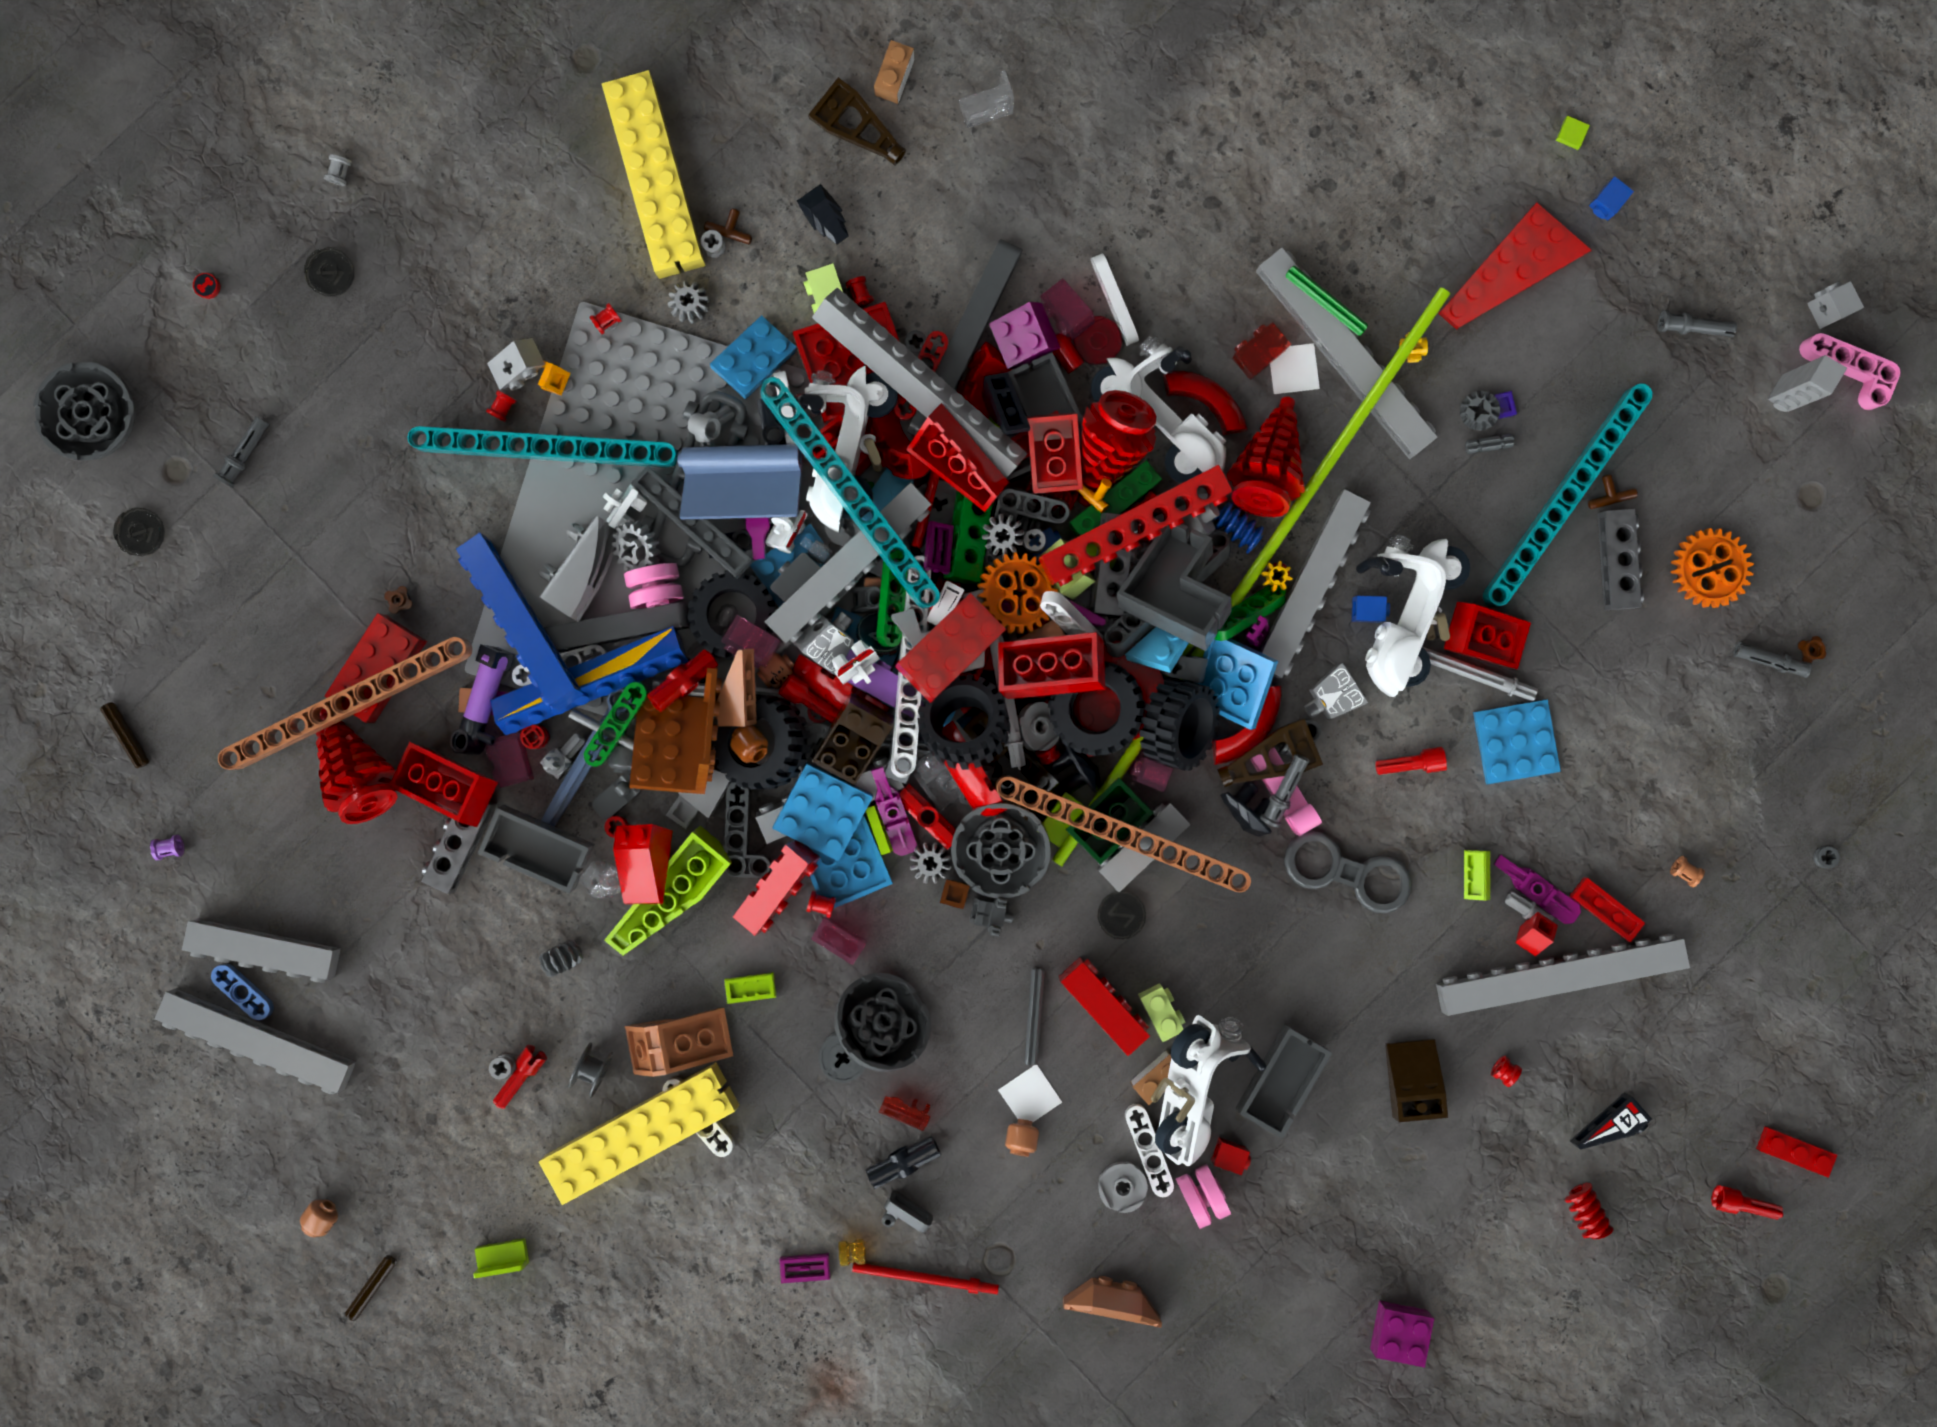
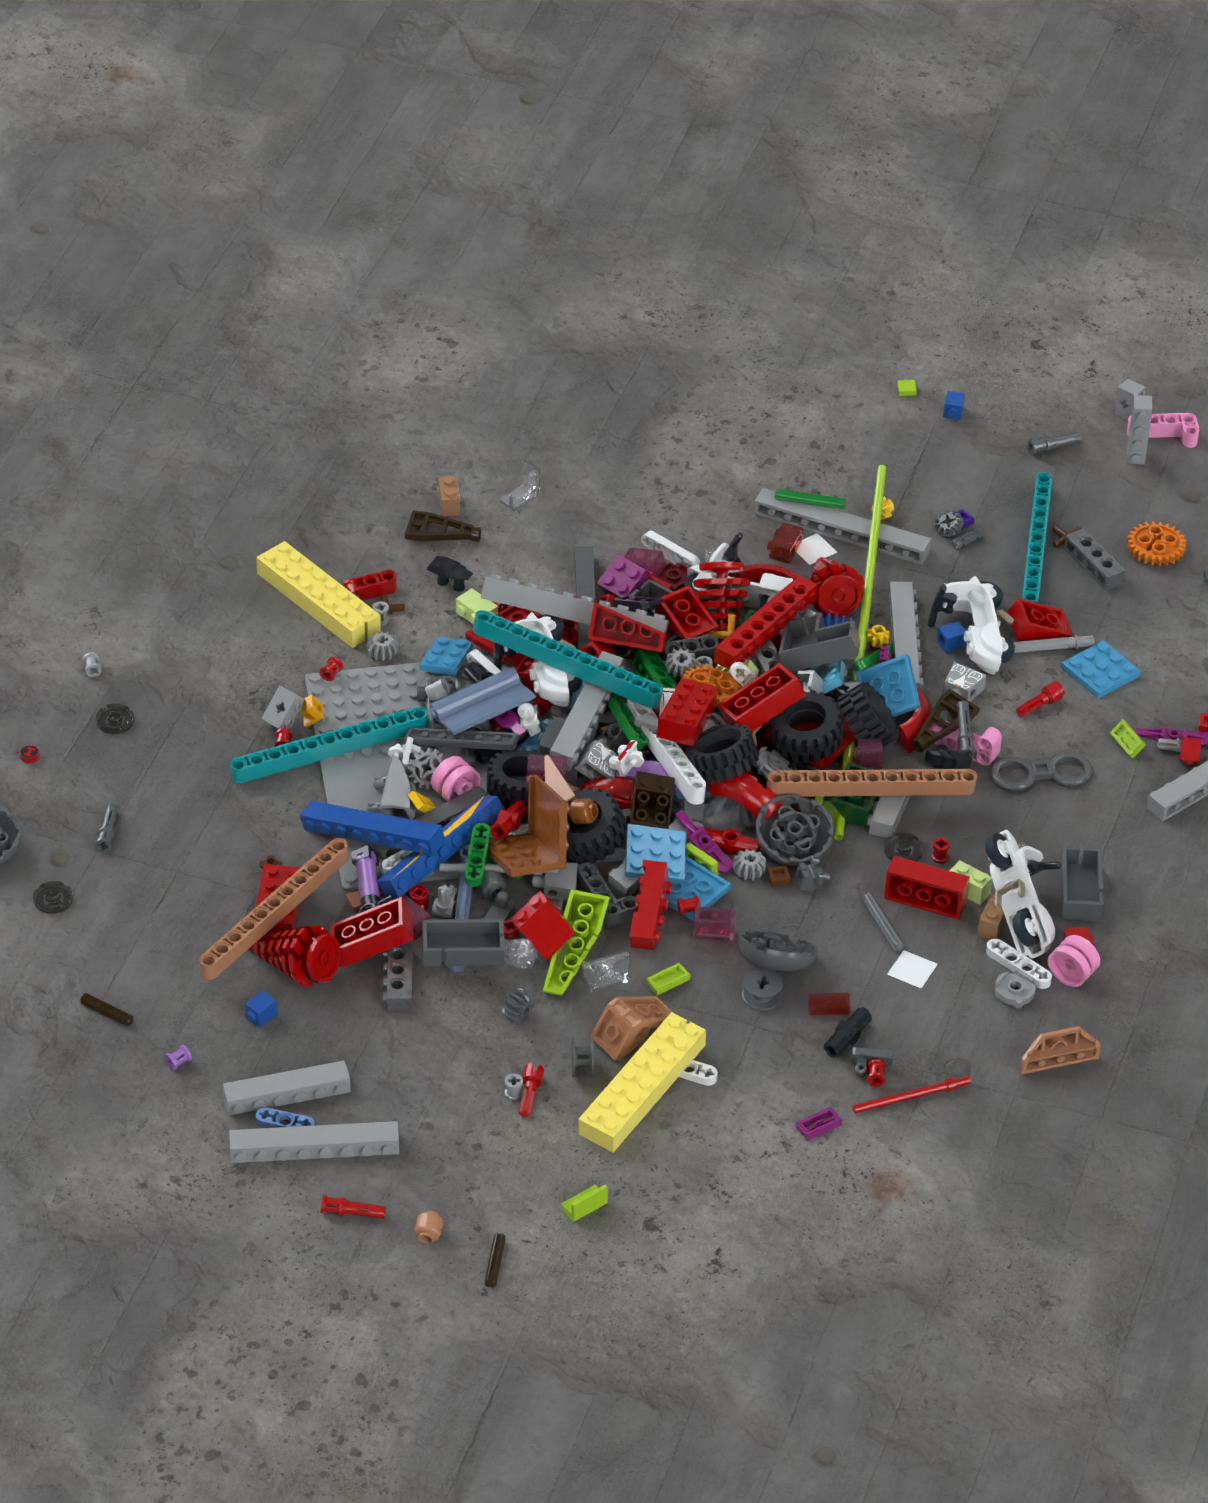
camera: 30 degrees left, 45 degrees down
(246, 1142) = (348, 1207): none -> red pin
(285, 820) = (260, 1009): none -> blue brick
(599, 604) = (421, 802): none -> yellow tile
(683, 947) = (606, 971): none -> clear slope
(706, 189) = (372, 584): none -> red piece
(857, 1251) = (846, 1096): clear yellow wheel -> none
(900, 1235) = (875, 1072): none -> red bush
(1022, 1138) = (923, 986): nougat head -> none
(1132, 655) = (811, 681): none -> light grey panel
(1158, 953) = (940, 852): none -> red bush
(1415, 1081) = (1174, 856): dark brown slope -> none
(1523, 258) = (919, 452): red wing -> none

